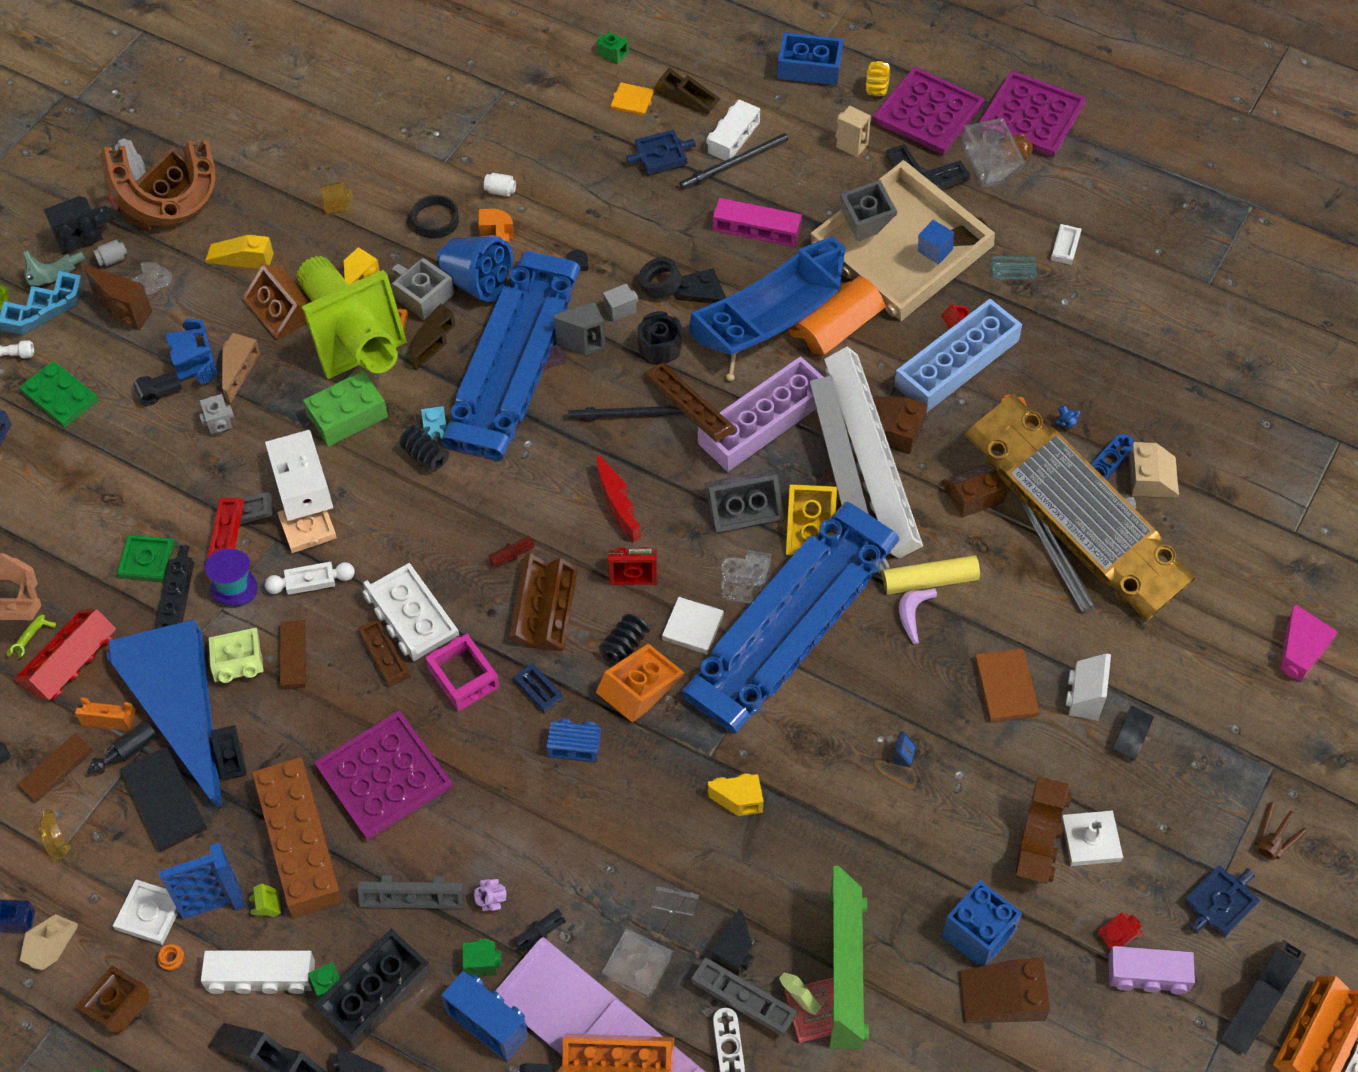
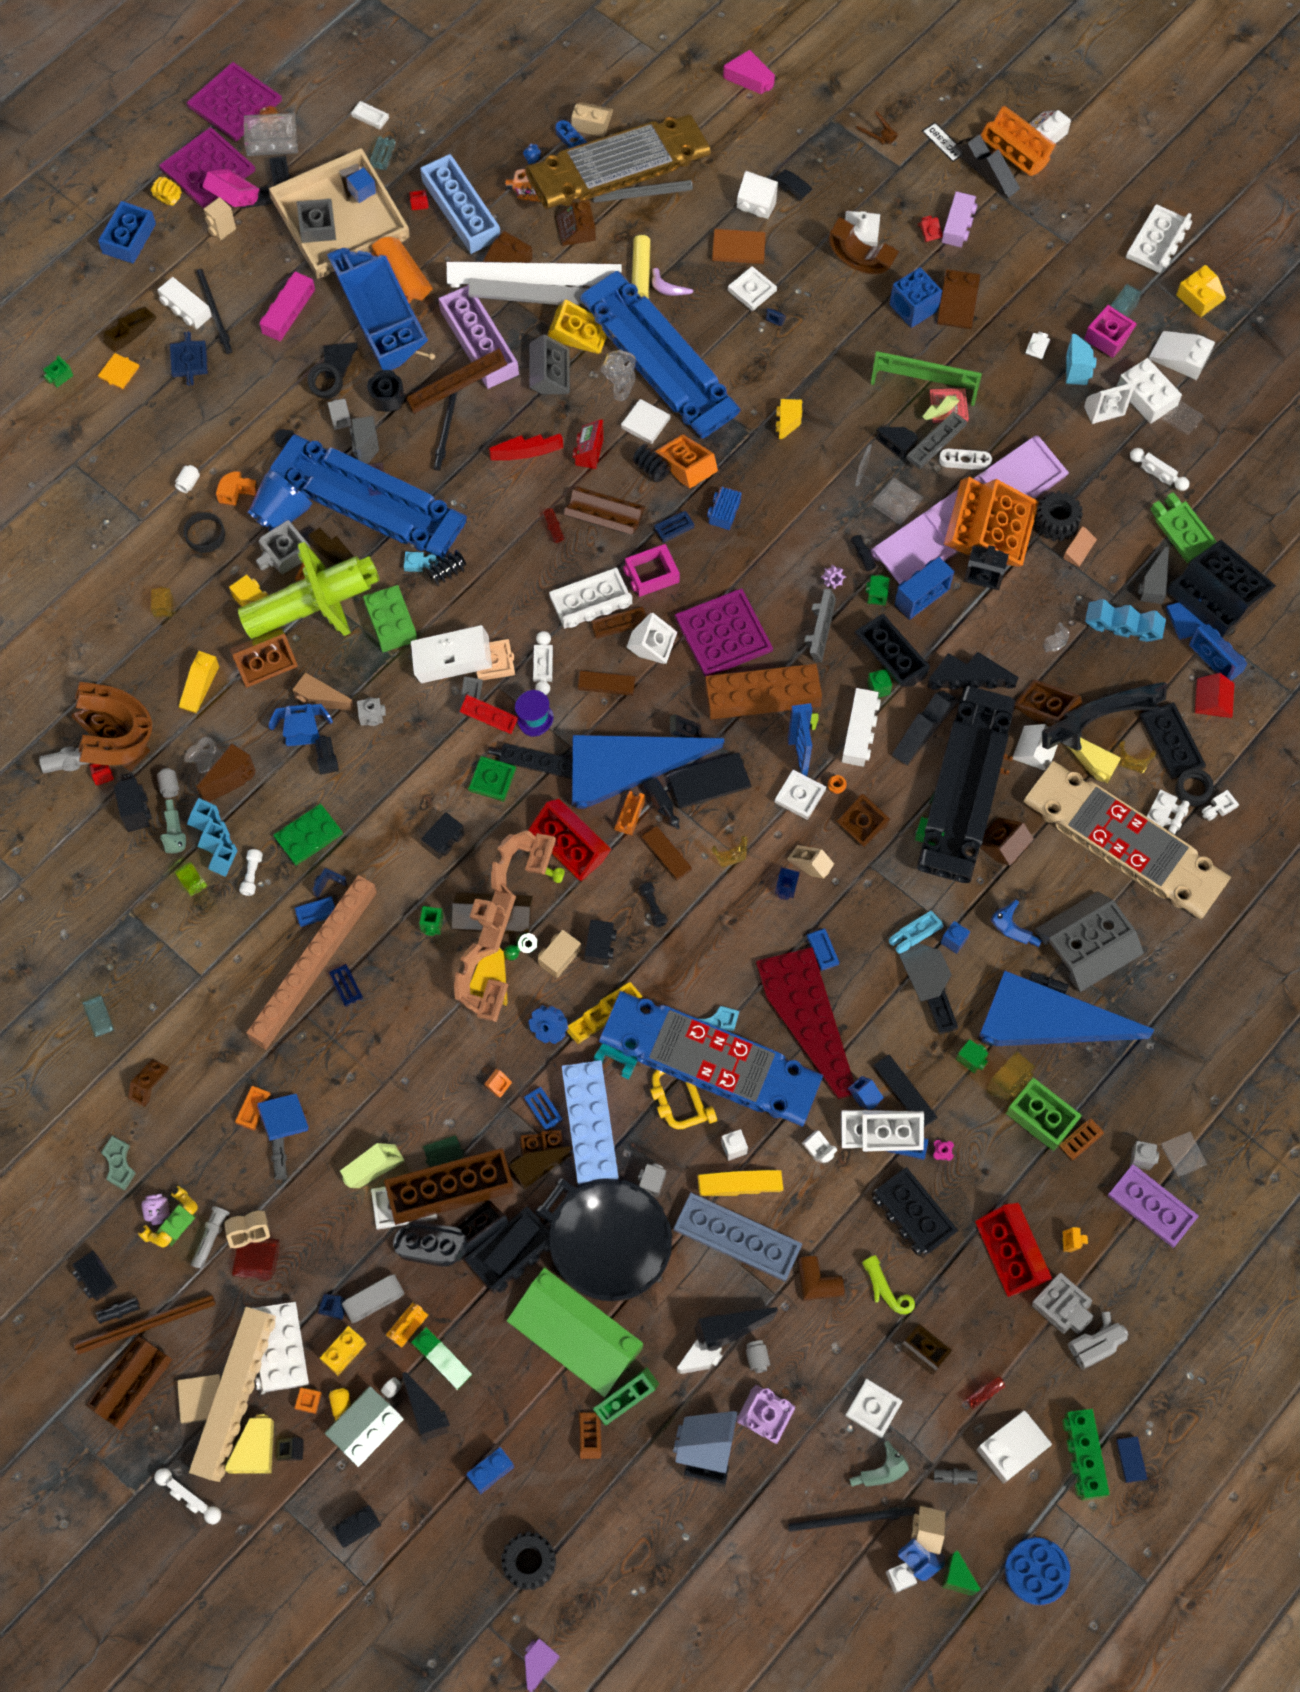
camera: 80 degrees left, 10 degrees up
(60, 520) = (442, 836): none -> black brick
(235, 655) = (601, 717): yellowish green plate -> none
(357, 692) = (652, 639): none -> white slope
(902, 115) = (231, 187): none -> dark pink window
(939, 712) = (752, 288): none -> white plate
(1222, 901) = (920, 170): dark blue plate -> none
(1296, 925) = (941, 140): none -> white sticker

